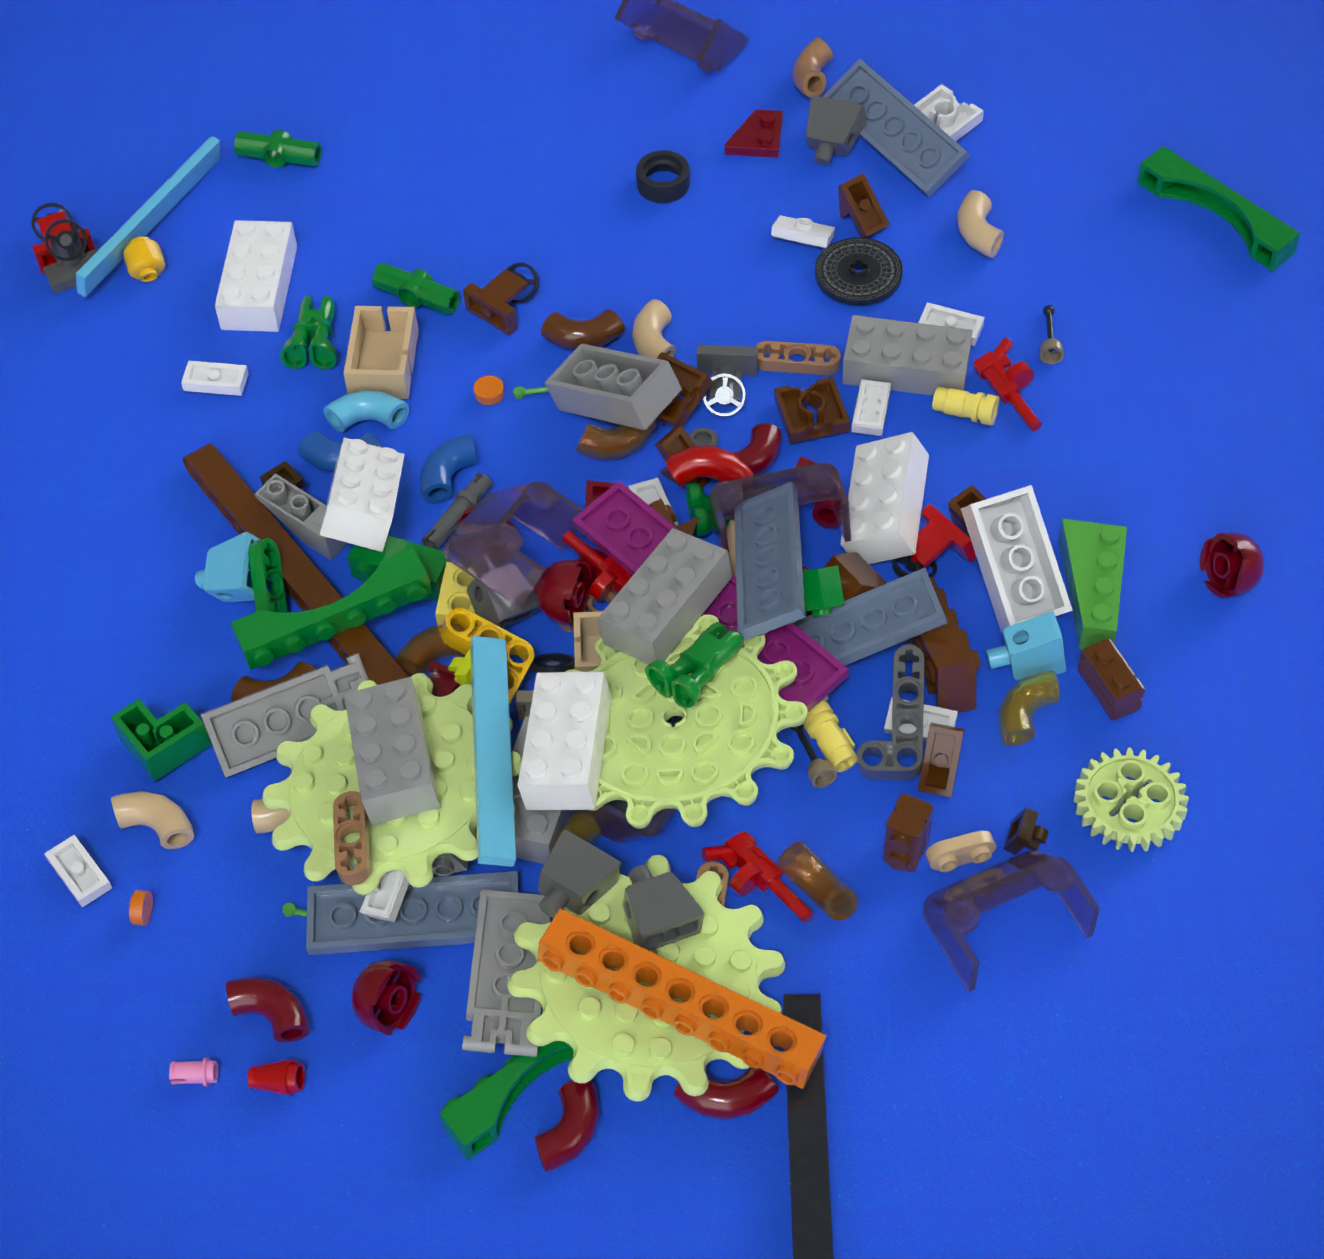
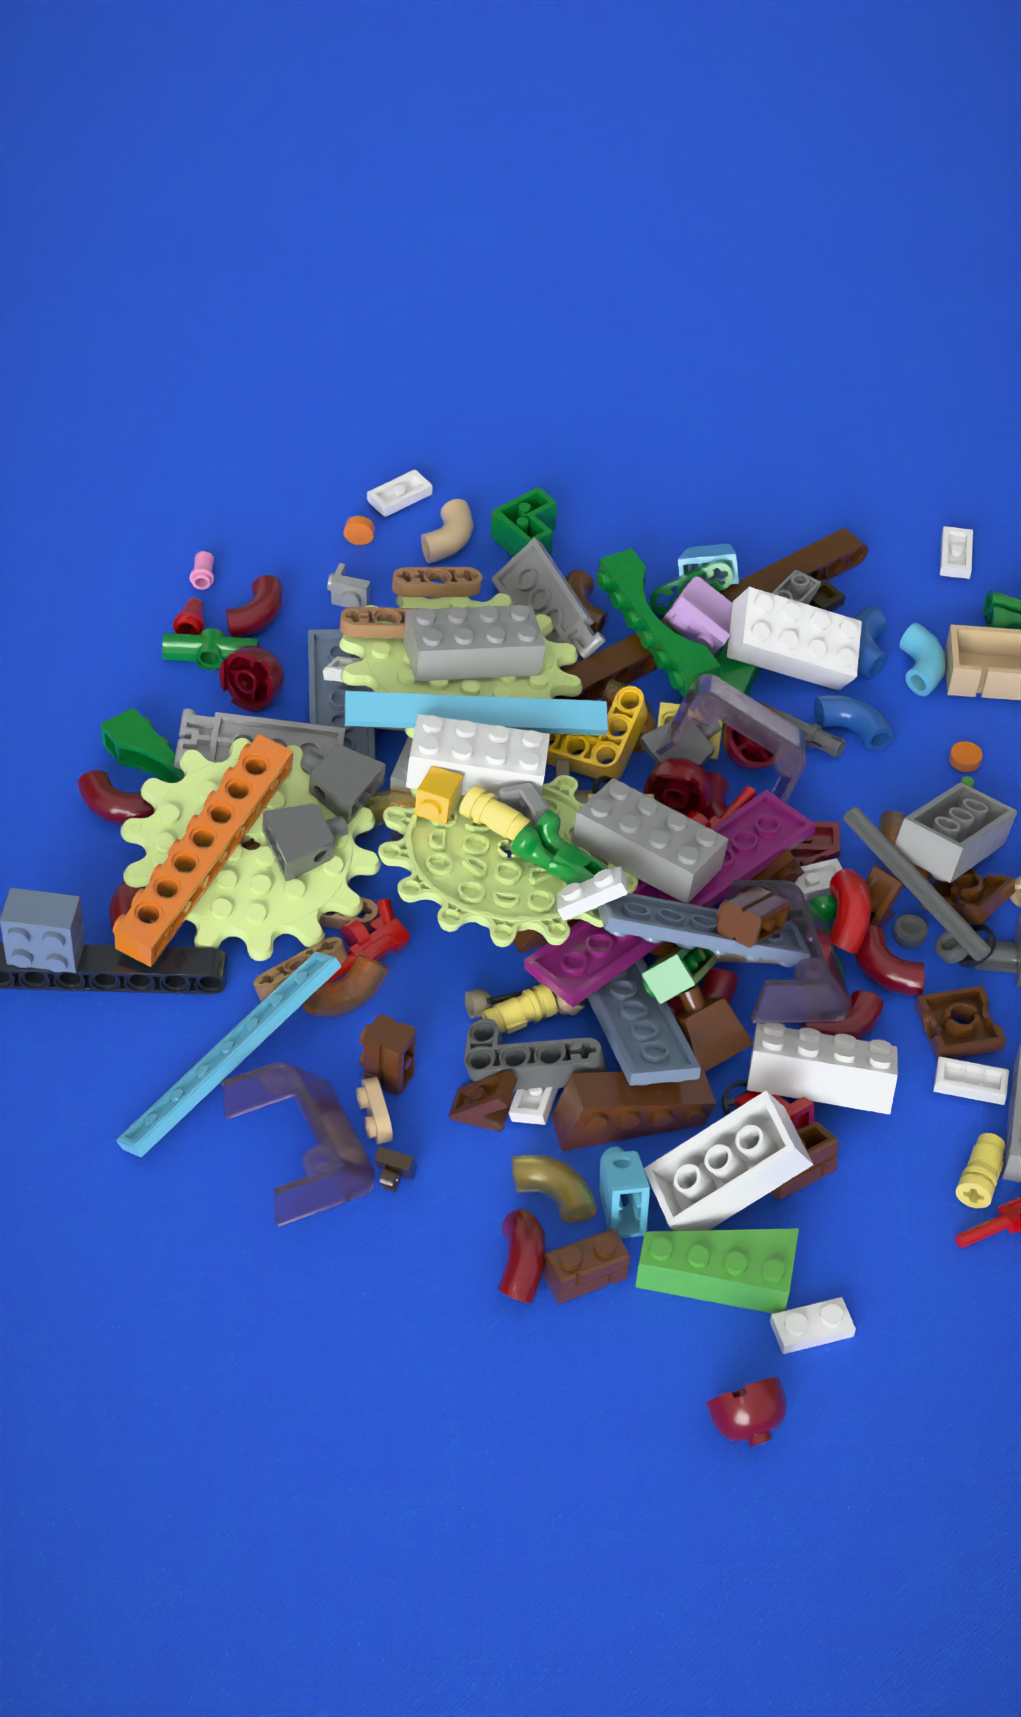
camera: 85 degrees right, 5 degrees down
(245, 911) = (348, 590): none -> light grey bracket
(278, 813) = (417, 582): none -> medium nougat beam
(325, 572) = (701, 615): none -> lavender bracket
(329, 1051) = (205, 649): none -> green piece
(621, 769) = (438, 795): none -> yellow brick
(629, 695) = (525, 800): none -> light grey bracket
(637, 729) = (498, 816): none -> light yellow axle
(678, 415) = (917, 884): none -> dark grey axle
(724, 409) = (949, 949): none -> dark grey tile
(755, 630) = (584, 896): none -> white plate
(764, 513) = (752, 916): none -> reddish brown brick
(802, 952) = (272, 978): none -> medium nougat beam
(806, 1150) = (42, 930): none -> sand blue brick
(918, 976) = (227, 1054): none -> medium azure tile
(1111, 720) = (524, 1257): none -> dark red cylinder
(1140, 535) = (812, 1325): none -> white plate
(1153, 818) = (405, 1285): yellowish green gear -> none

